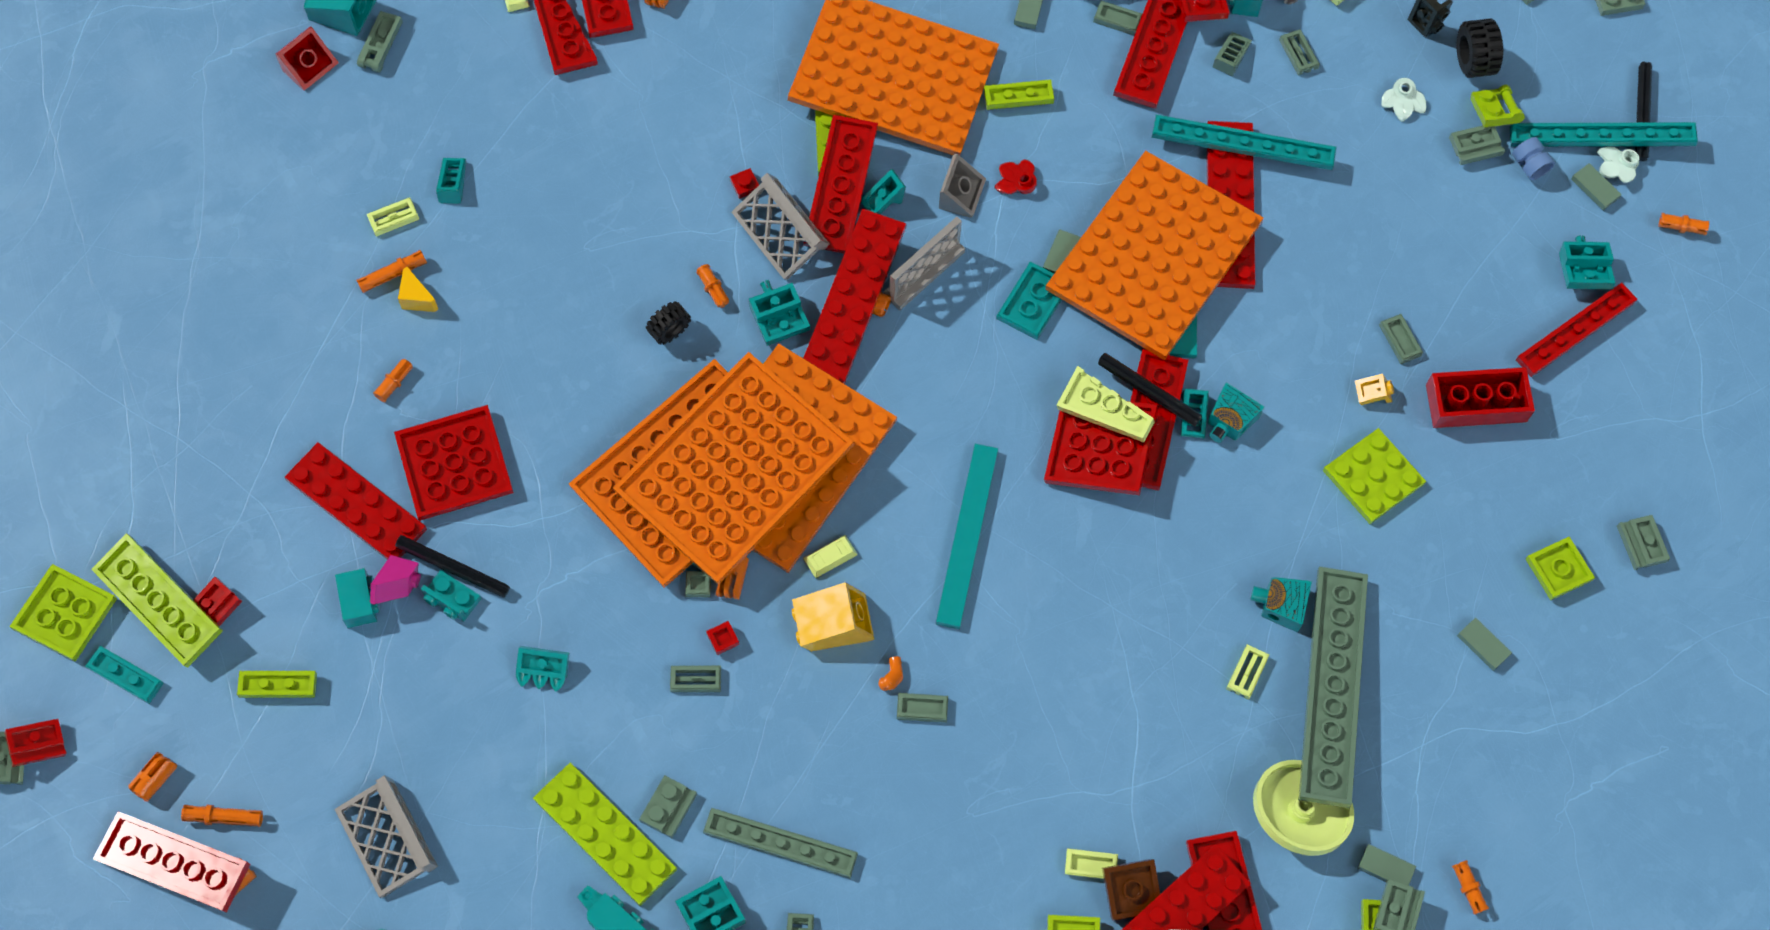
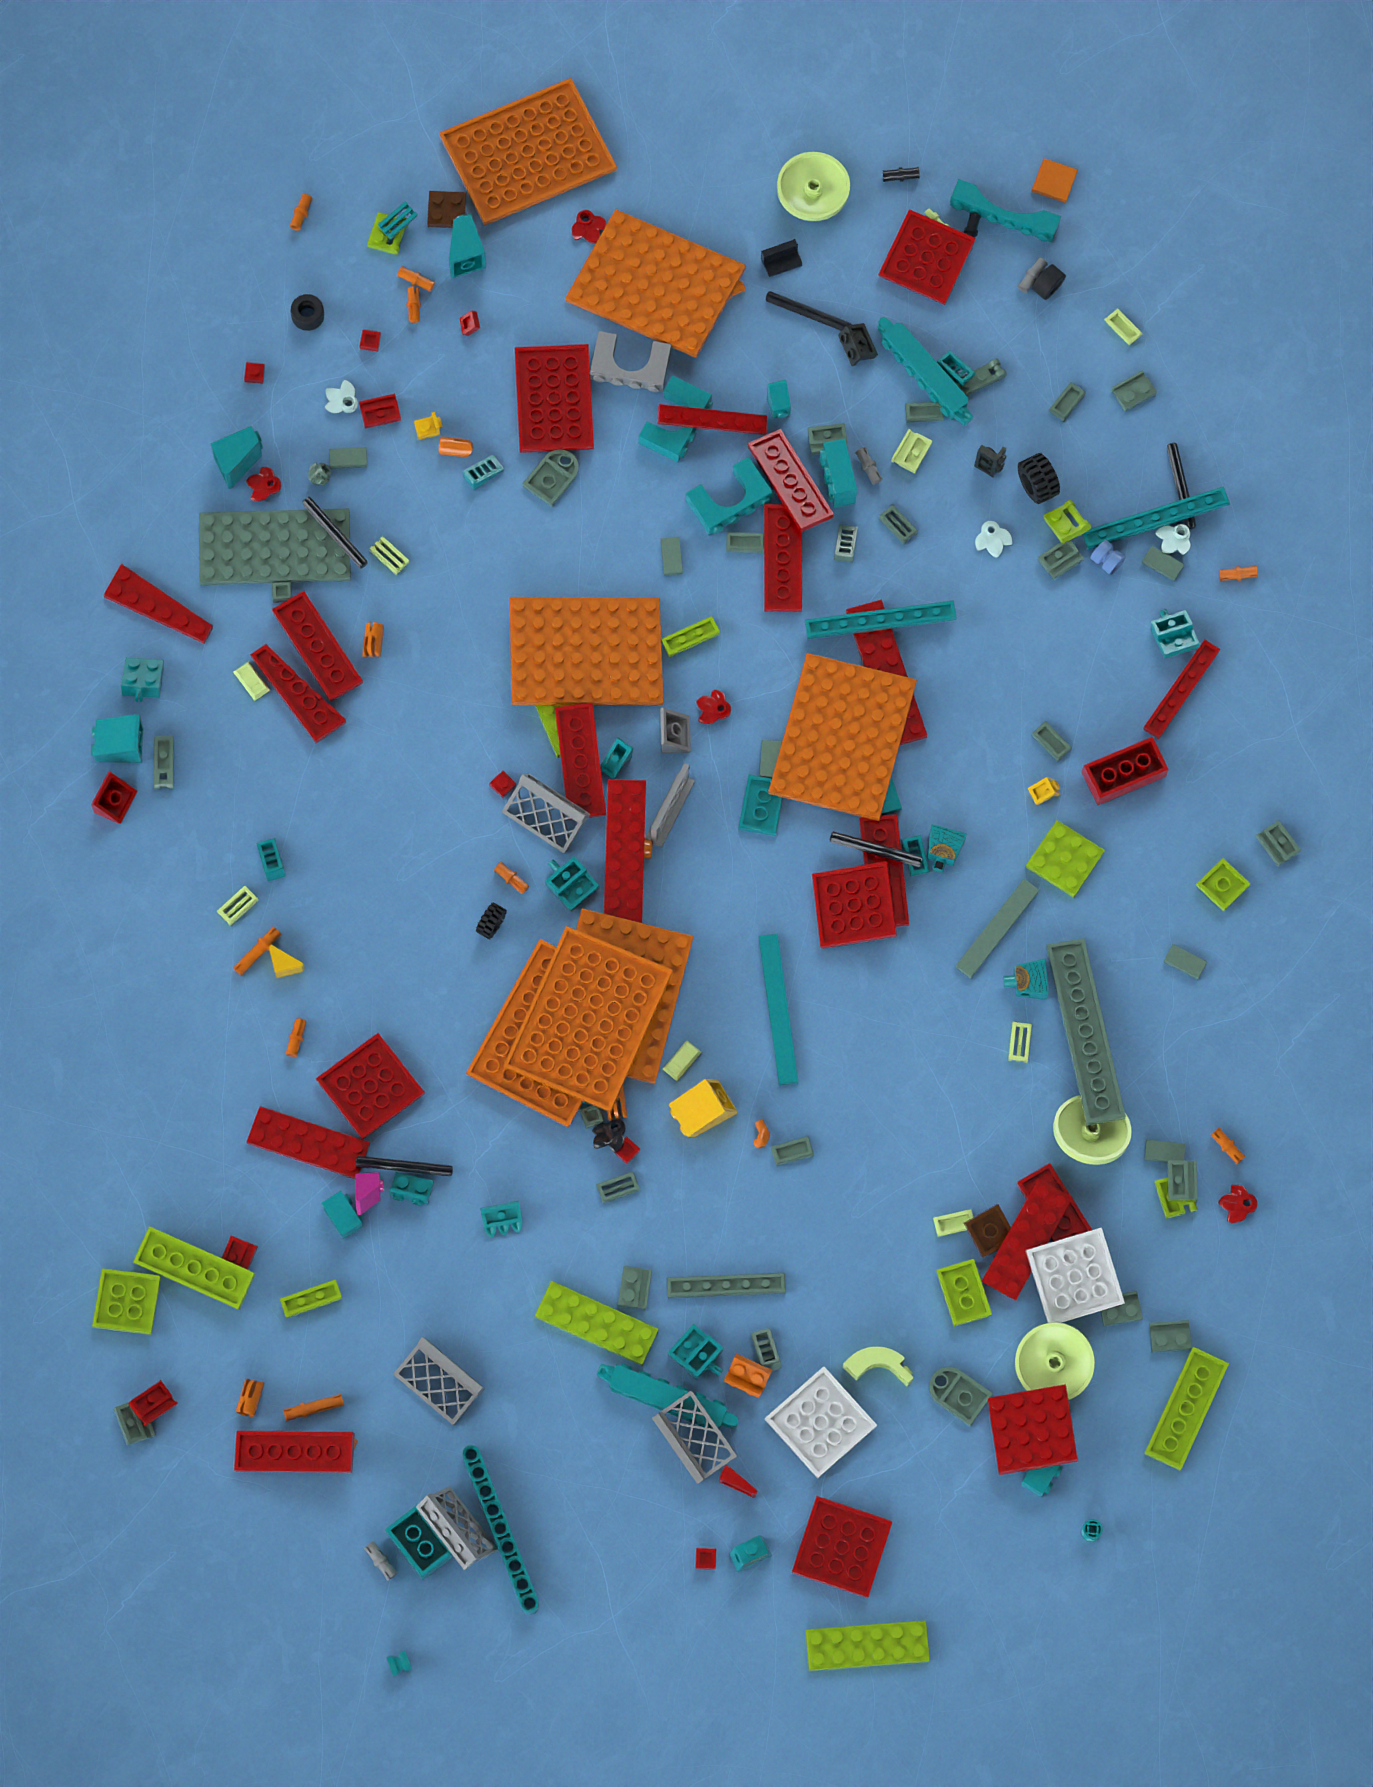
camera: 20 degrees left, 5 degrees up
(124, 674) = (192, 1331): teal tile -> none
(710, 613) = (607, 1136): none -> black plate
(1095, 403) = (843, 875): yellowish green wing -> none
(1264, 529) = (997, 928): none -> sand green tile

